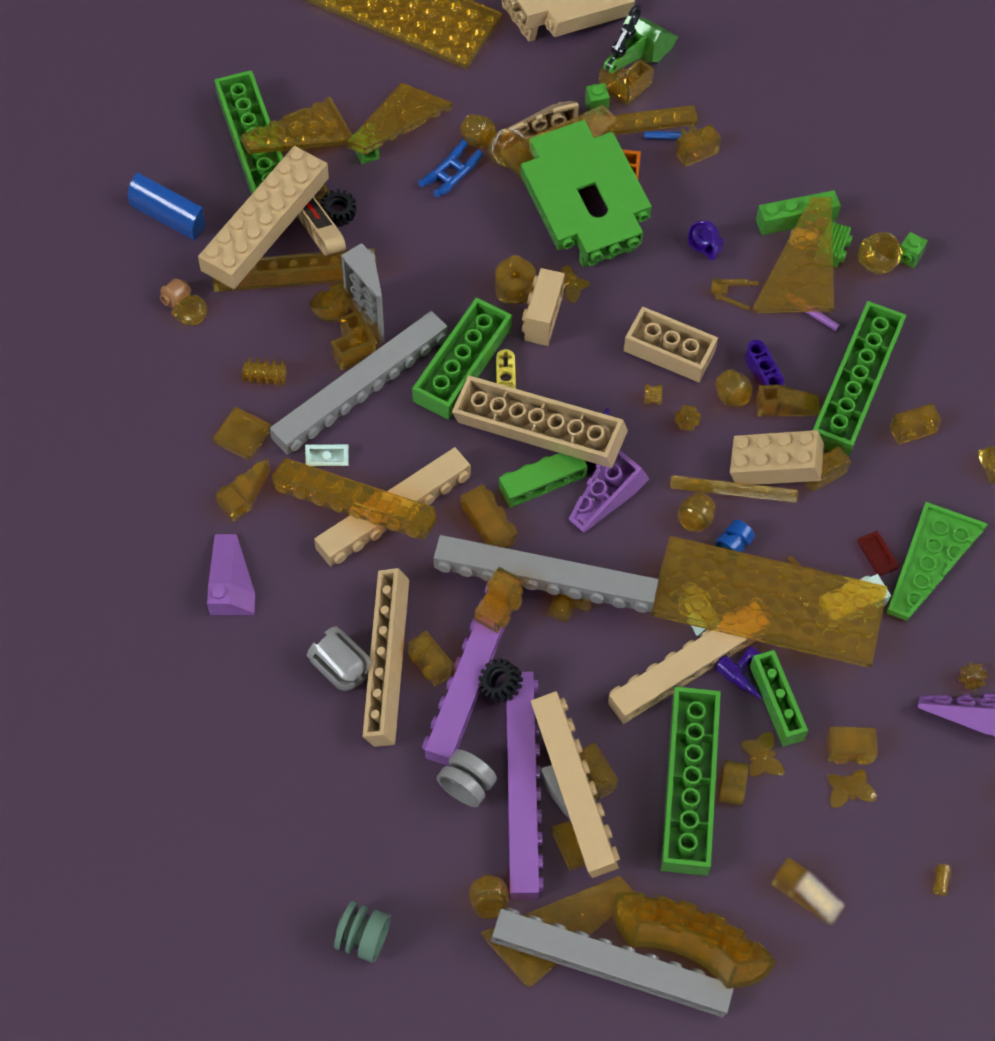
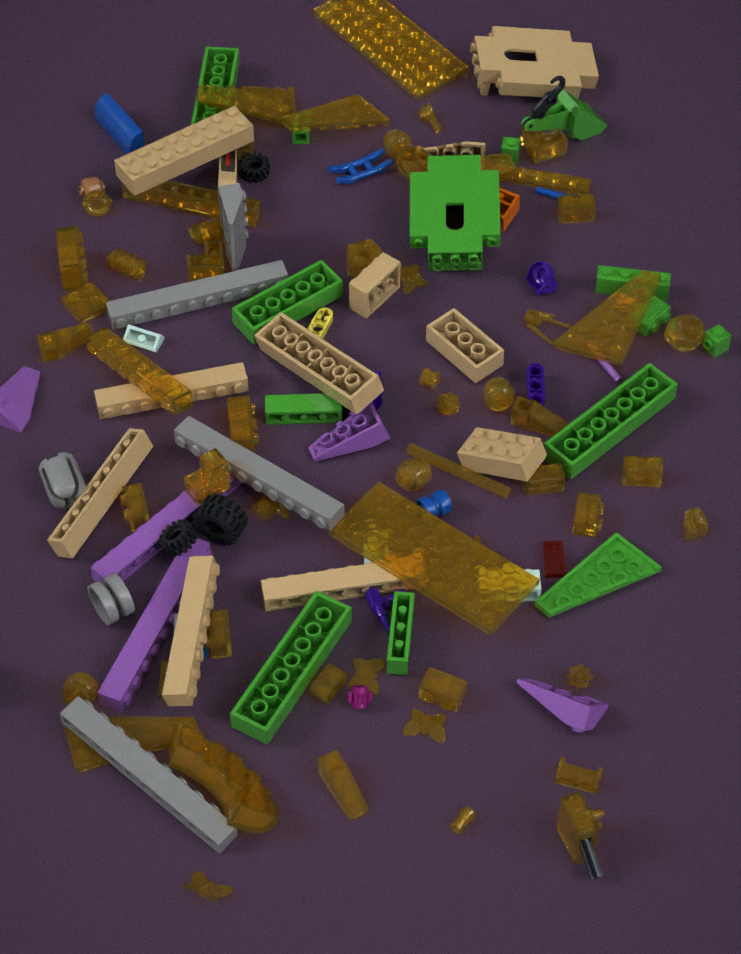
camera: 25 degrees right, 10 degrees down
(203, 388) = (70, 258): none -> clear yellow brick
(488, 82) = (427, 113): none -> clear yellow bar
(532, 641) = (220, 519): none -> black tyre
(774, 785) = (359, 696): none -> magenta gear
(887, 492) = (587, 515): none -> clear yellow brick

